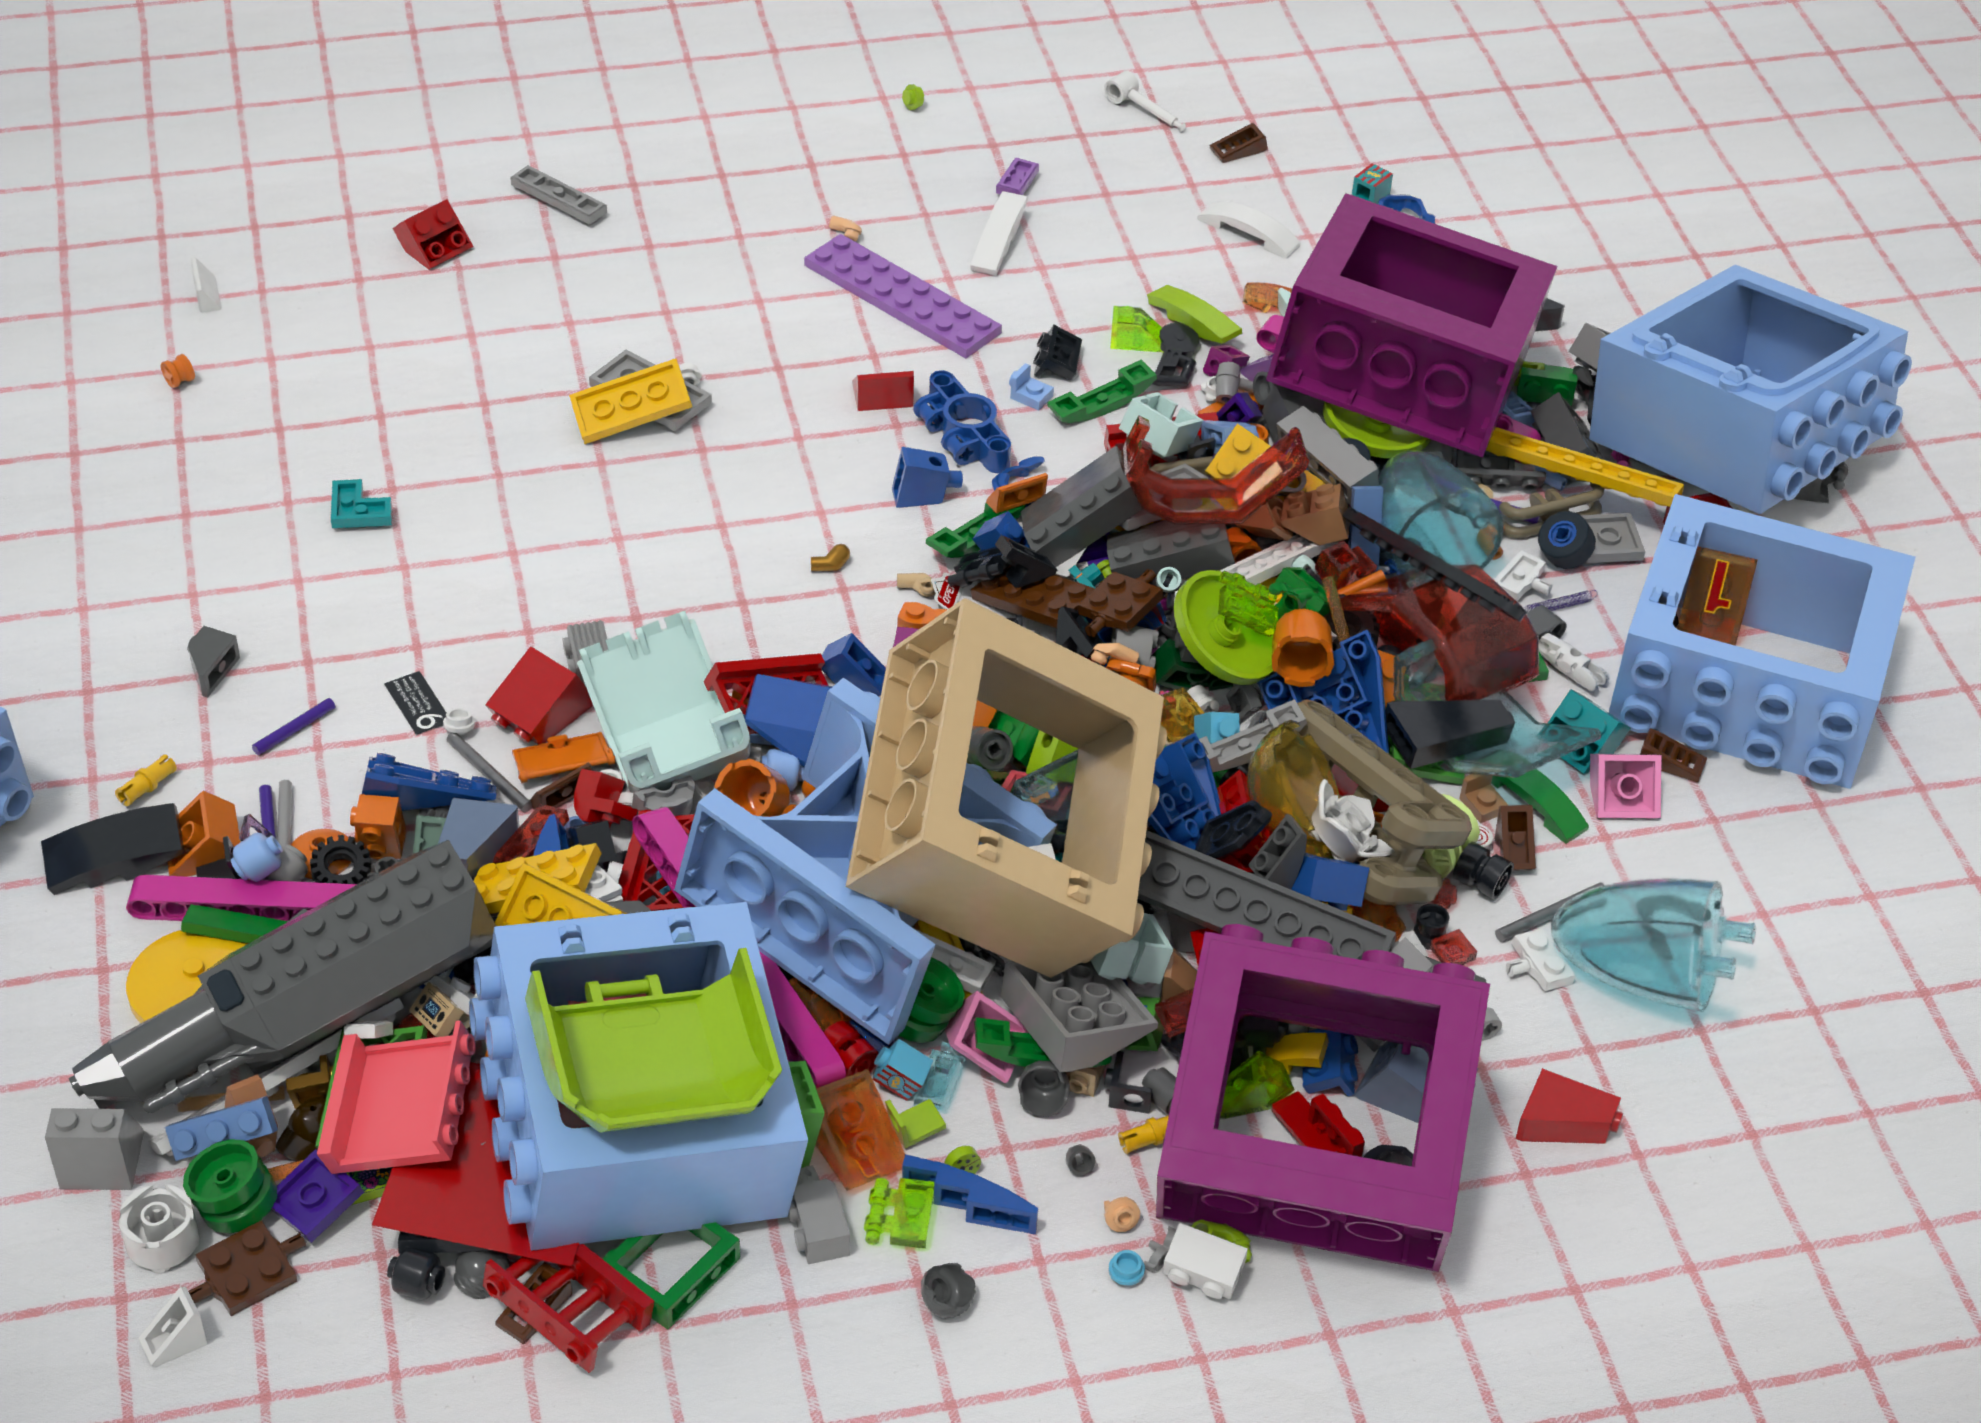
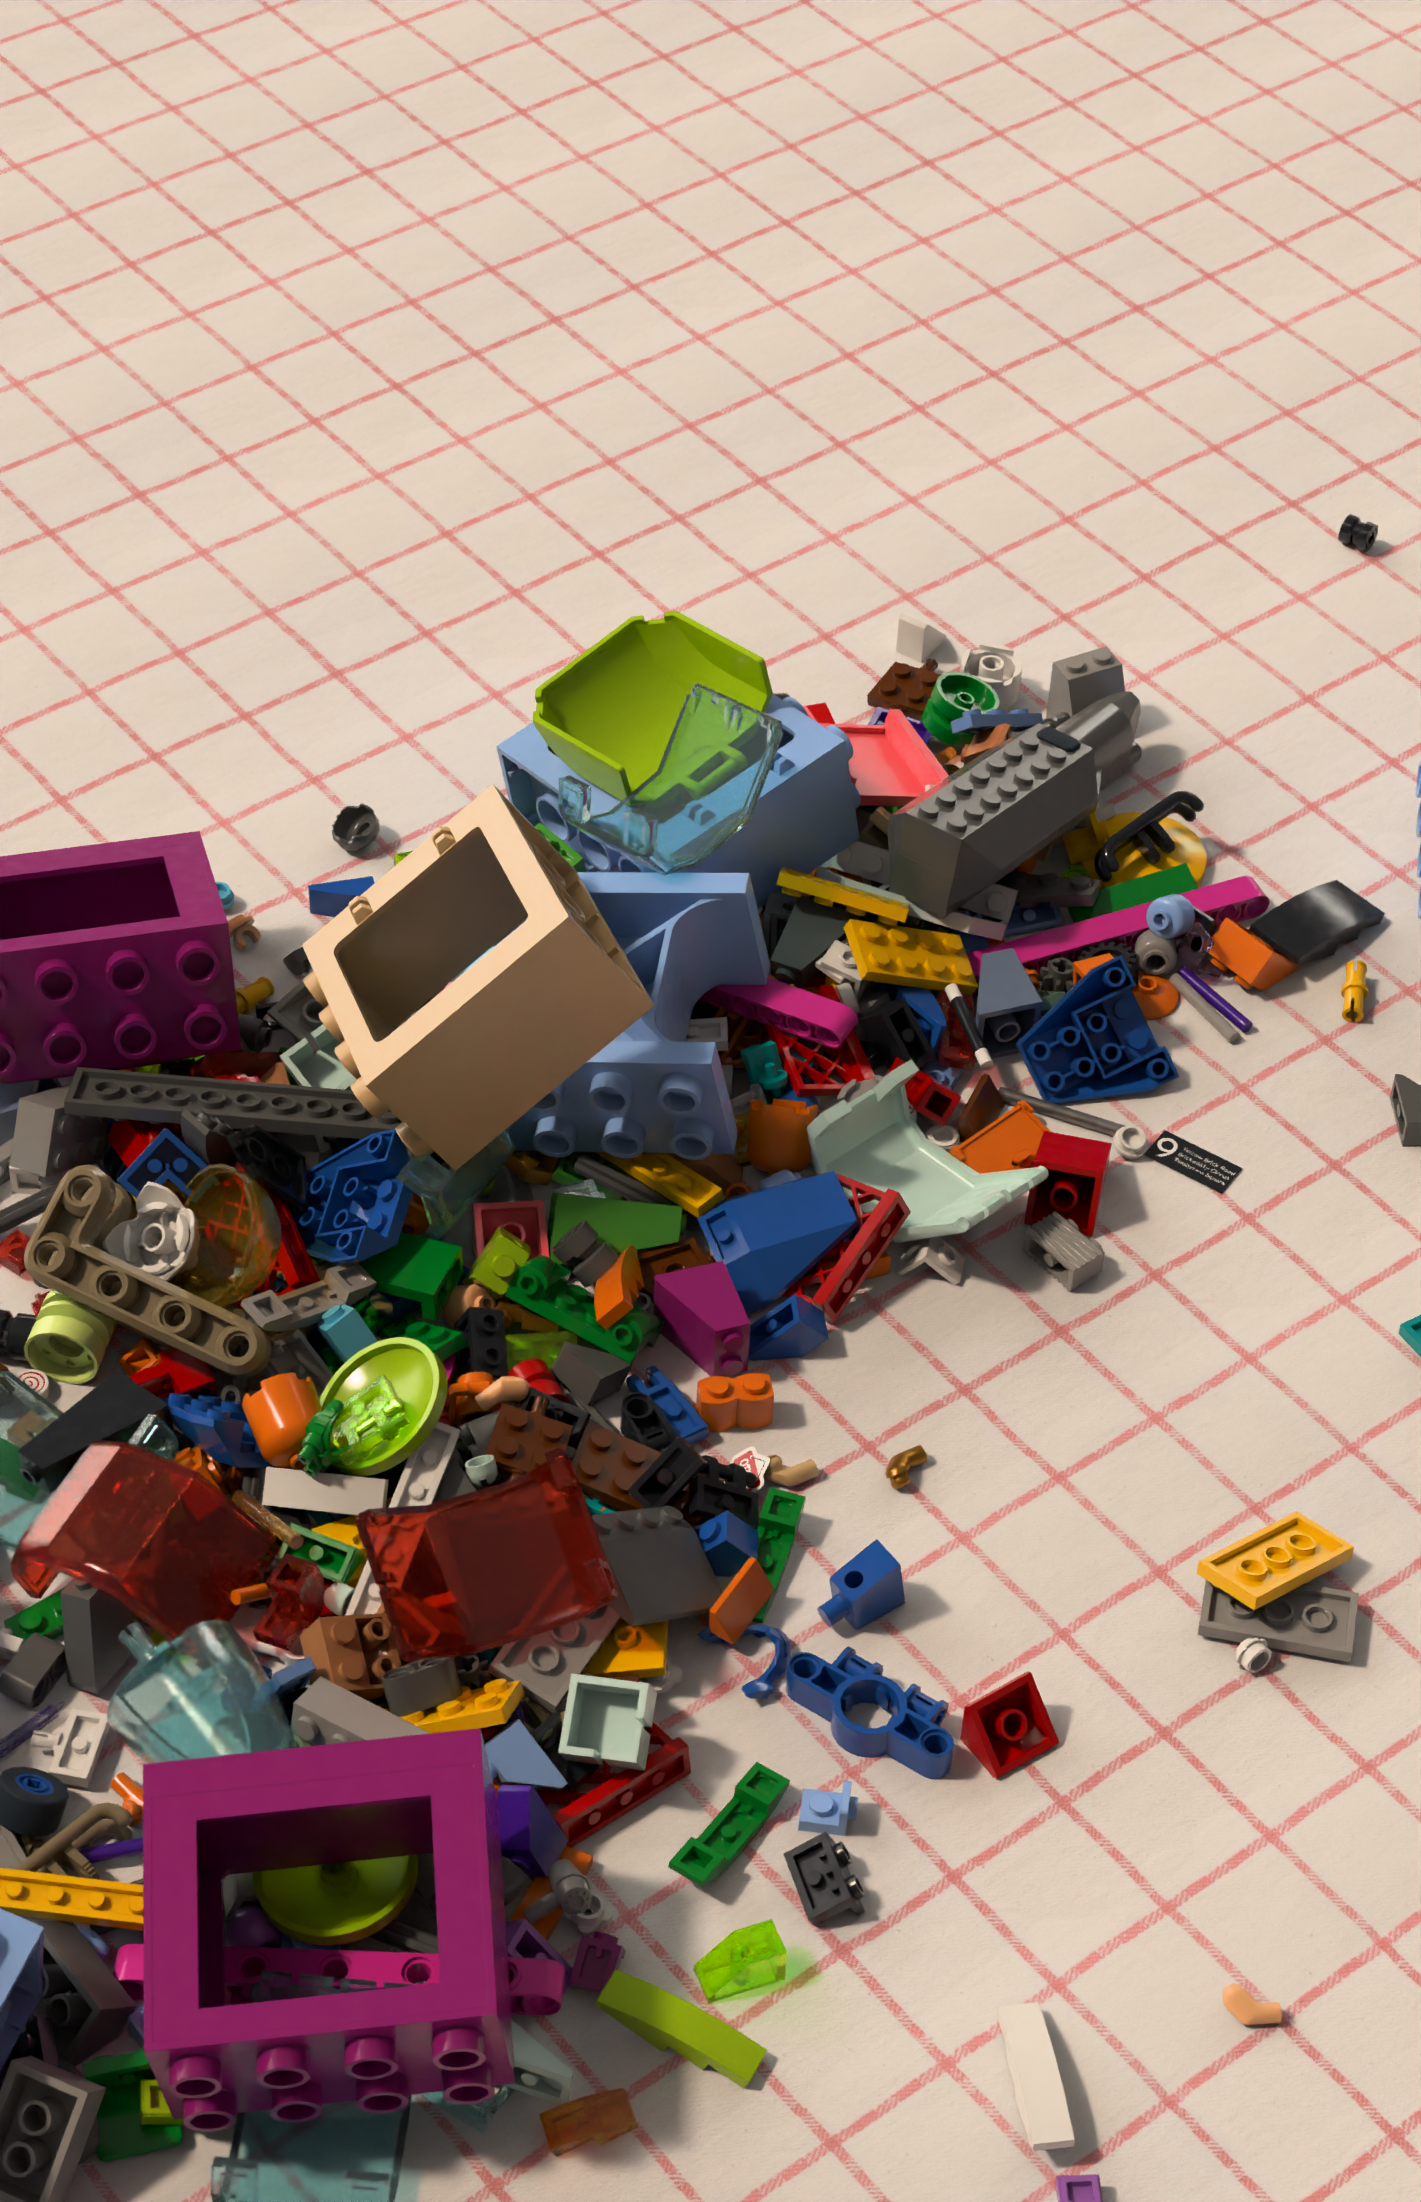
camera: 155 degrees right, 0 degrees up
(192, 951) = (1179, 802): none -> black piece
(293, 726) = (1280, 1091): dark purple bar -> none
(524, 823) = (968, 1026): none -> black bar
(709, 899) = (698, 793): none -> clear light blue windscreen
(903, 295) = (1095, 1915): medium lavender plate -> none
(1178, 345) = (677, 1965): black piece -> none
(1436, 567) = (168, 1523): black plate -> none

